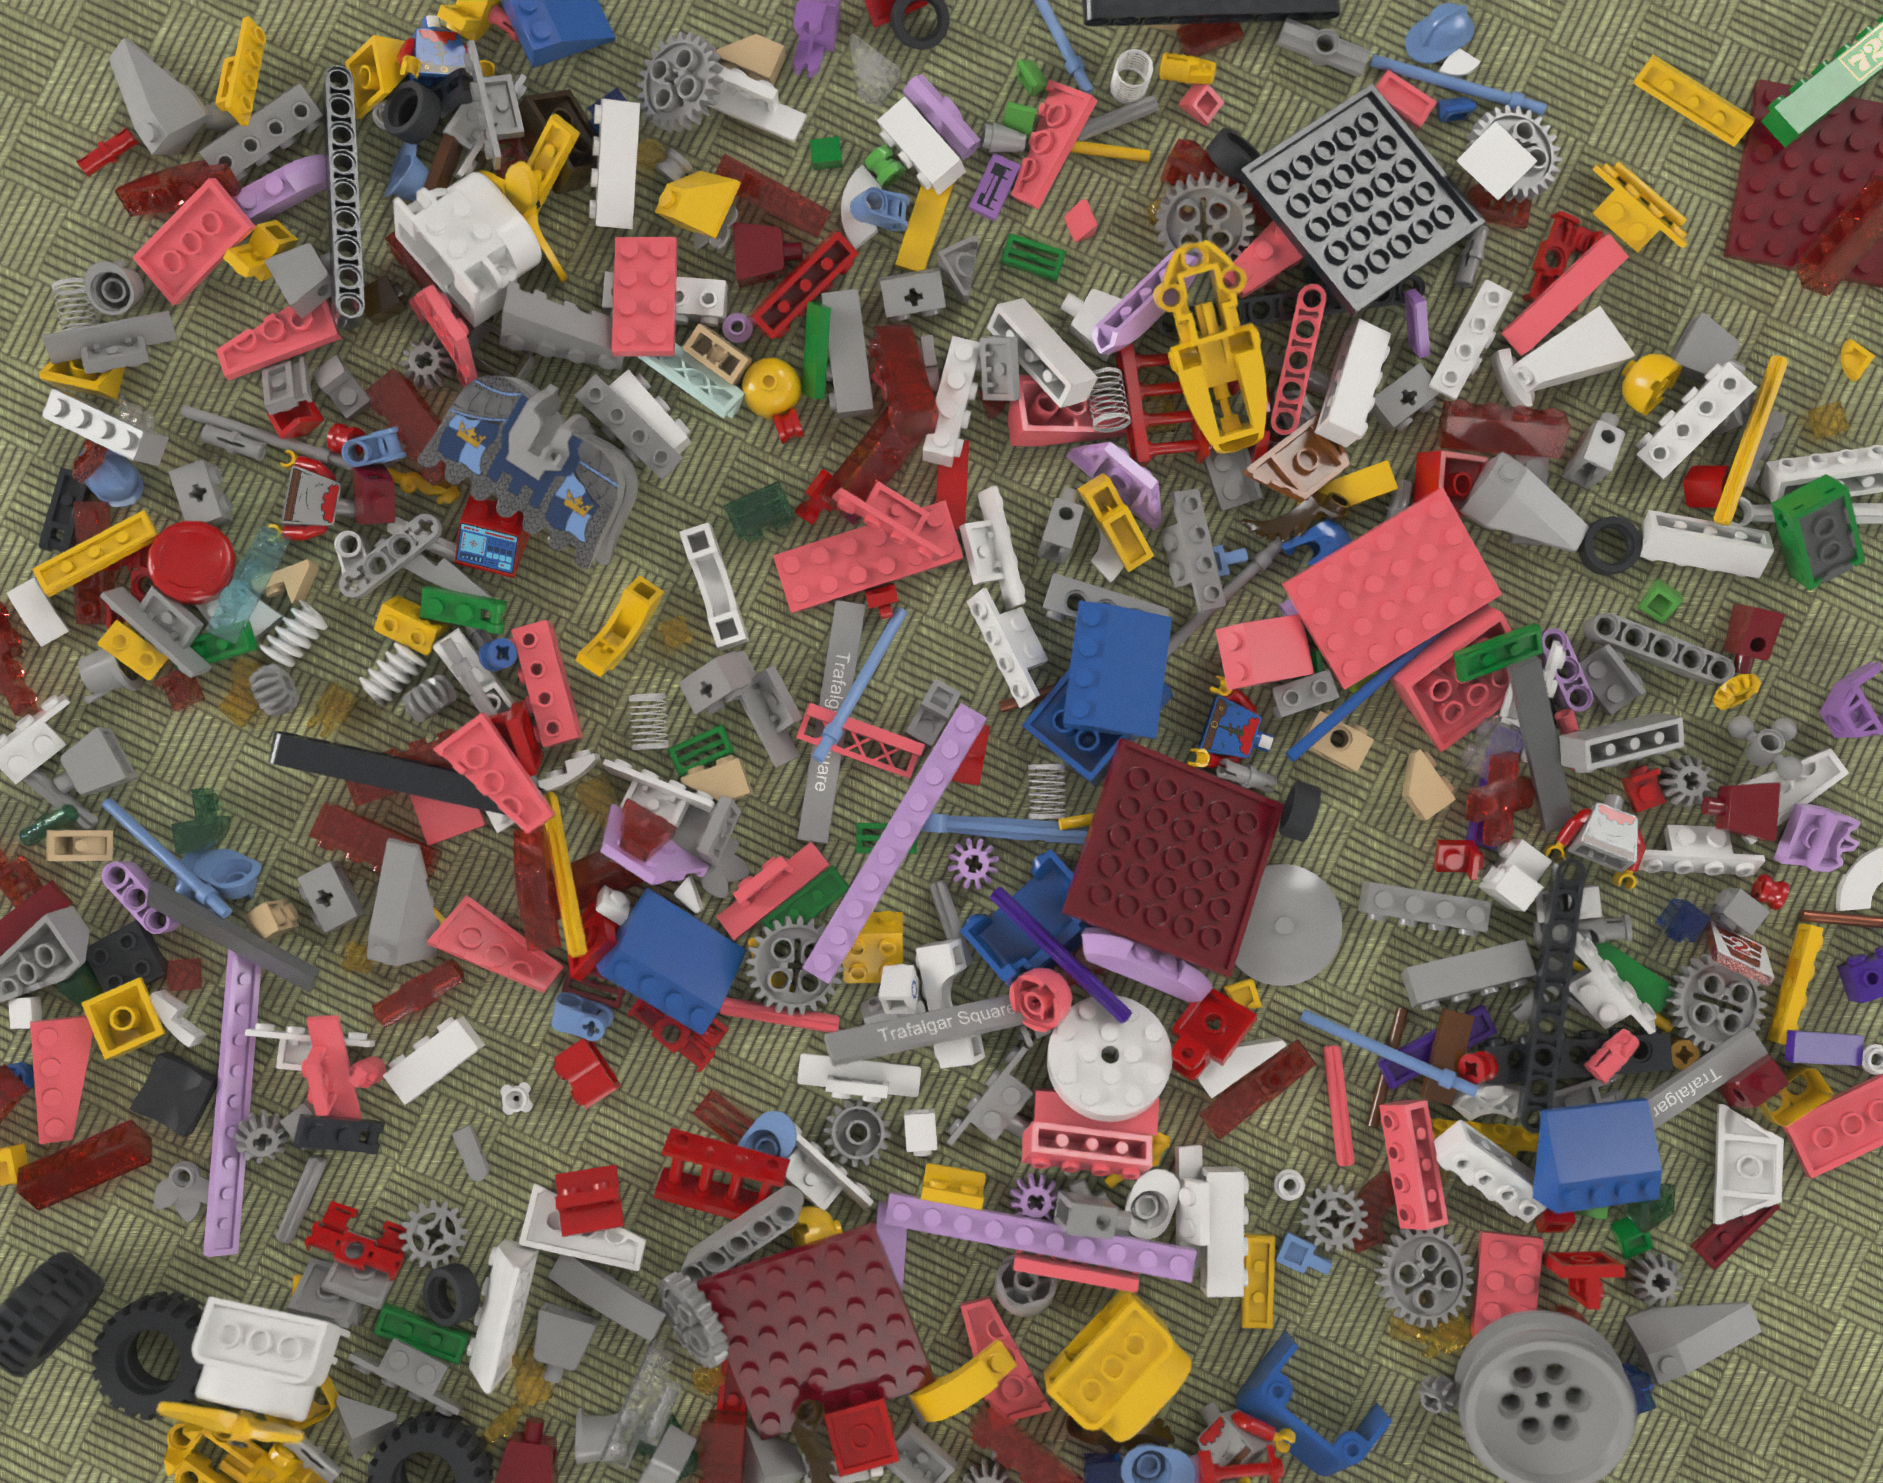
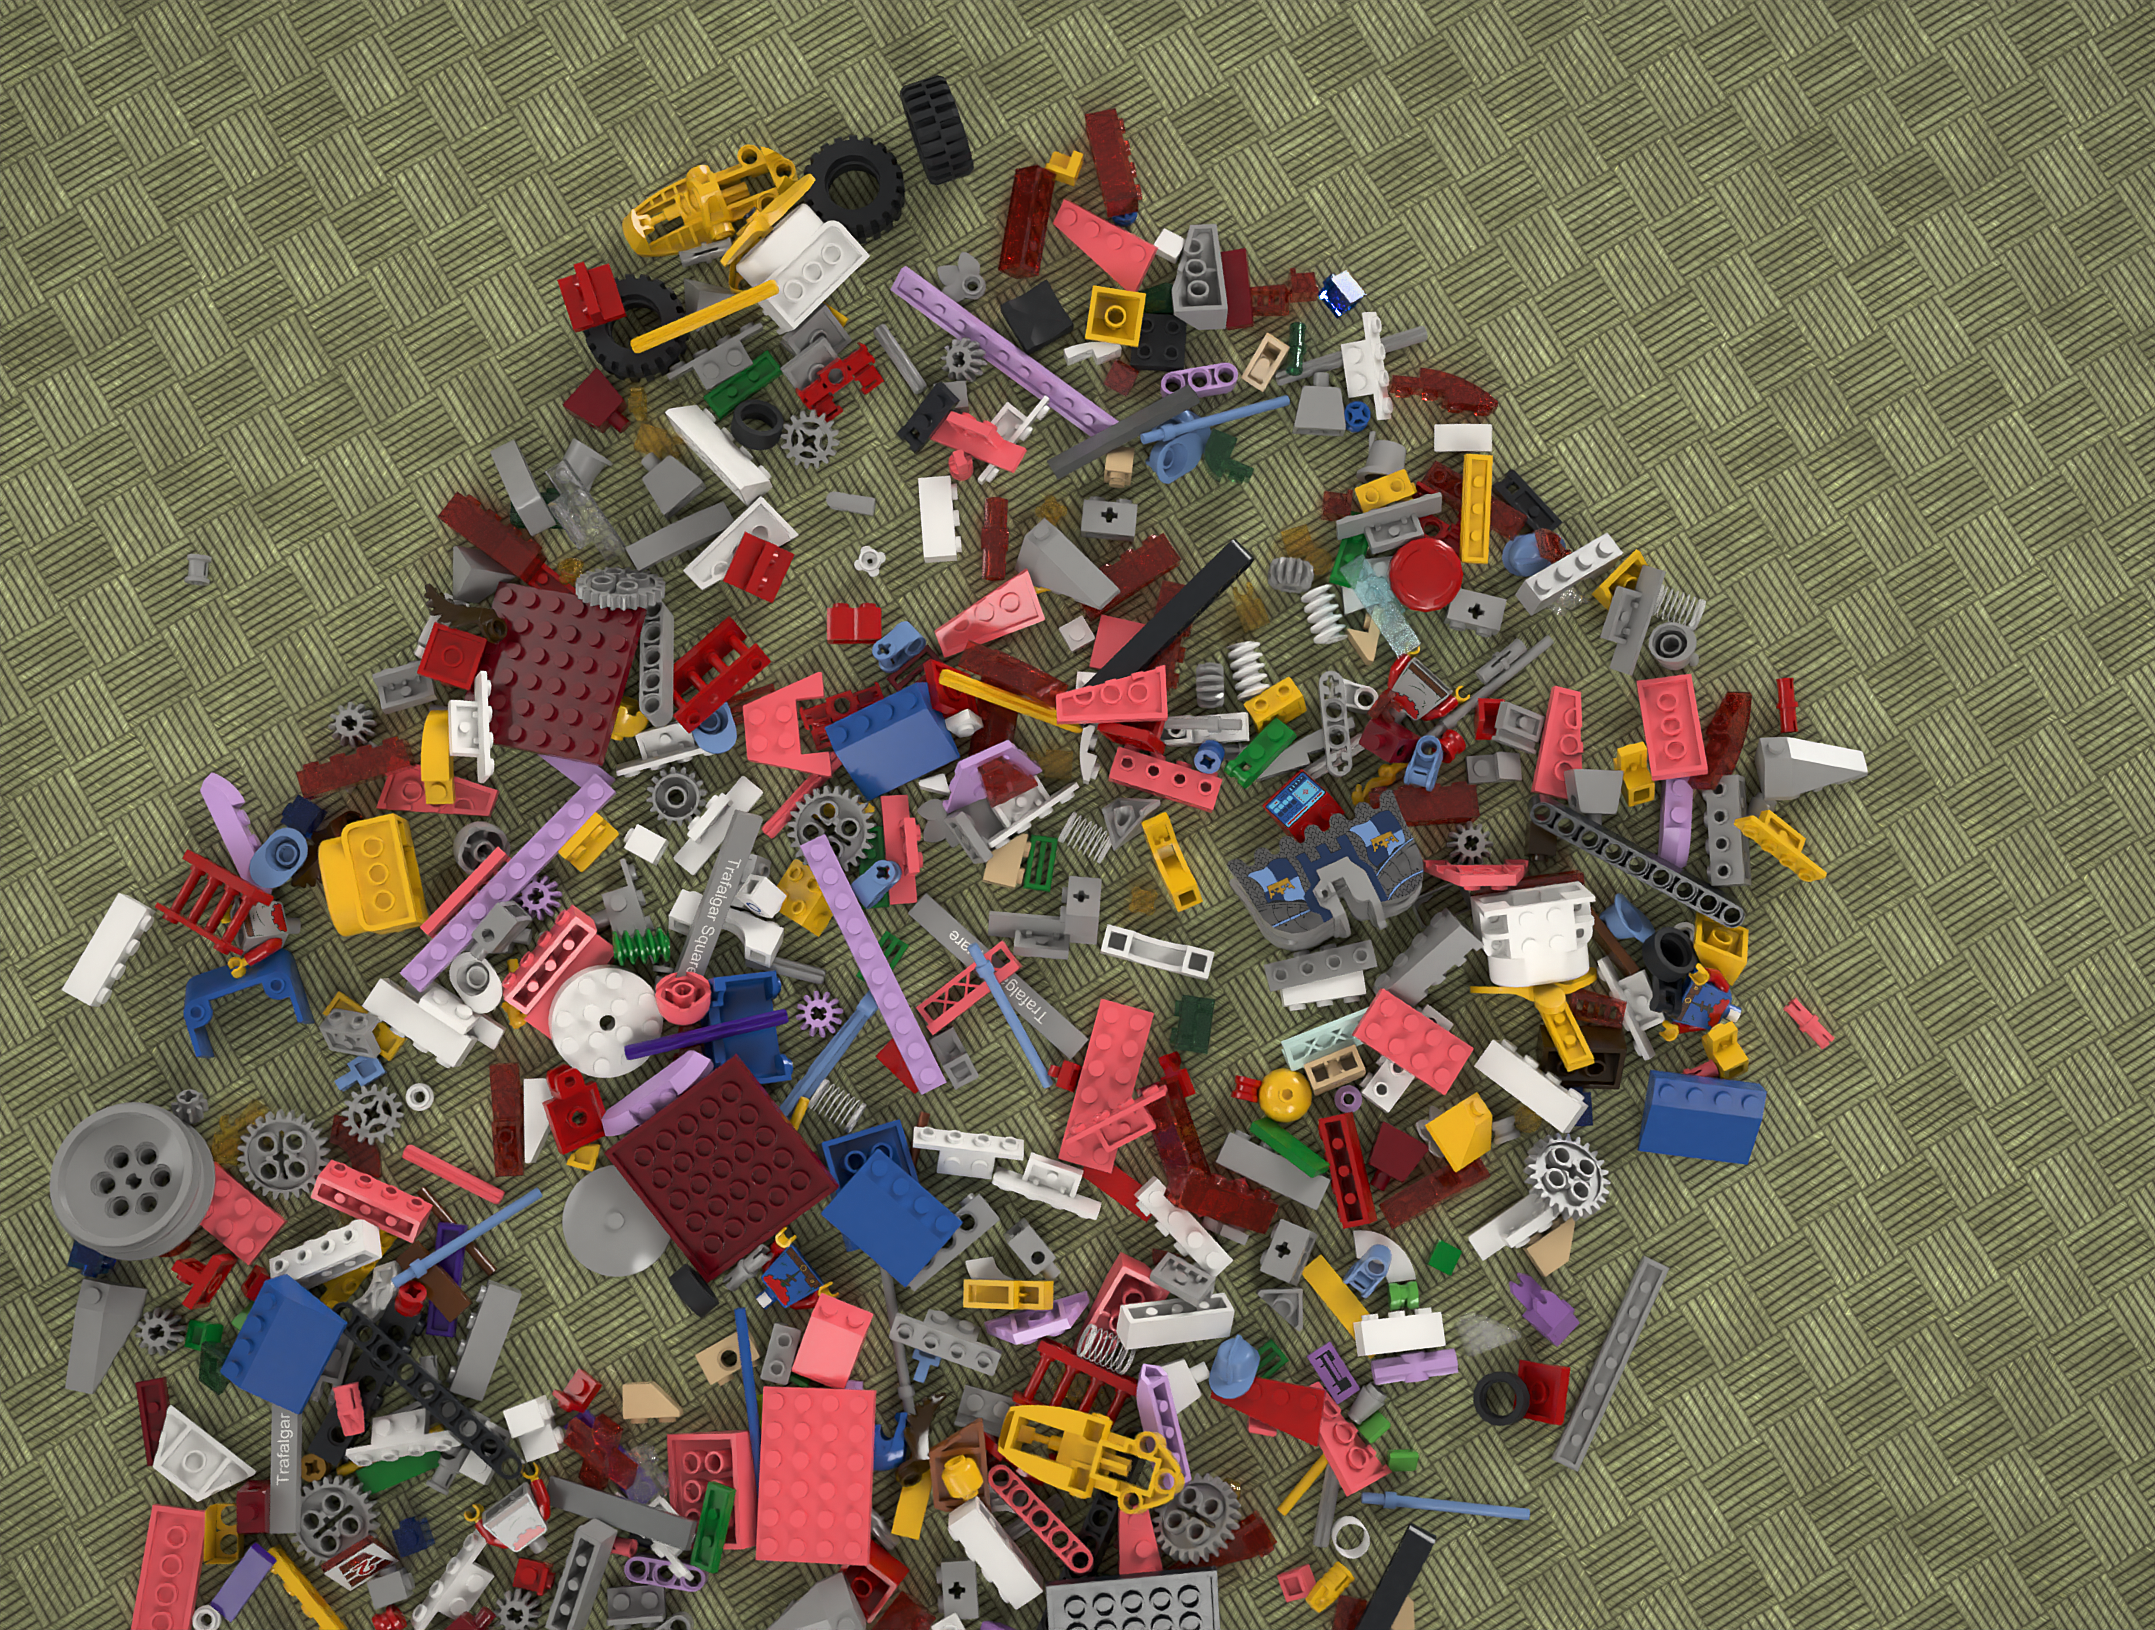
camera: 115 degrees right, 5 degrees down
(73, 724) = (1359, 411): none -> blue wheel
(341, 521) = (1383, 704): none -> clear red tile
(369, 1418) = (704, 316): none -> yellow axle
(461, 856) = (1077, 634): none -> white plate
(498, 106) = (1631, 1023): light grey bracket -> none
(605, 696) = (1125, 816): none -> light grey slope
(735, 1081) = (774, 729): none -> coral wing
(822, 891) = (872, 885): none -> medium blue piece
(918, 1373) = (470, 727): none -> white bracket
(1018, 1070) = (641, 946): none -> green piece
(1050, 274) = (1233, 1368): none -> medium blue piece
(1055, 215) = (1284, 1406): none -> red wing
(1231, 152) = (1237, 1577): black tyre -> none
(1273, 1289) = (351, 1033): none -> light grey bracket
(1308, 453) = (962, 1477): none -> yellow head
(1424, 906) = (558, 1340): light grey brick -> none

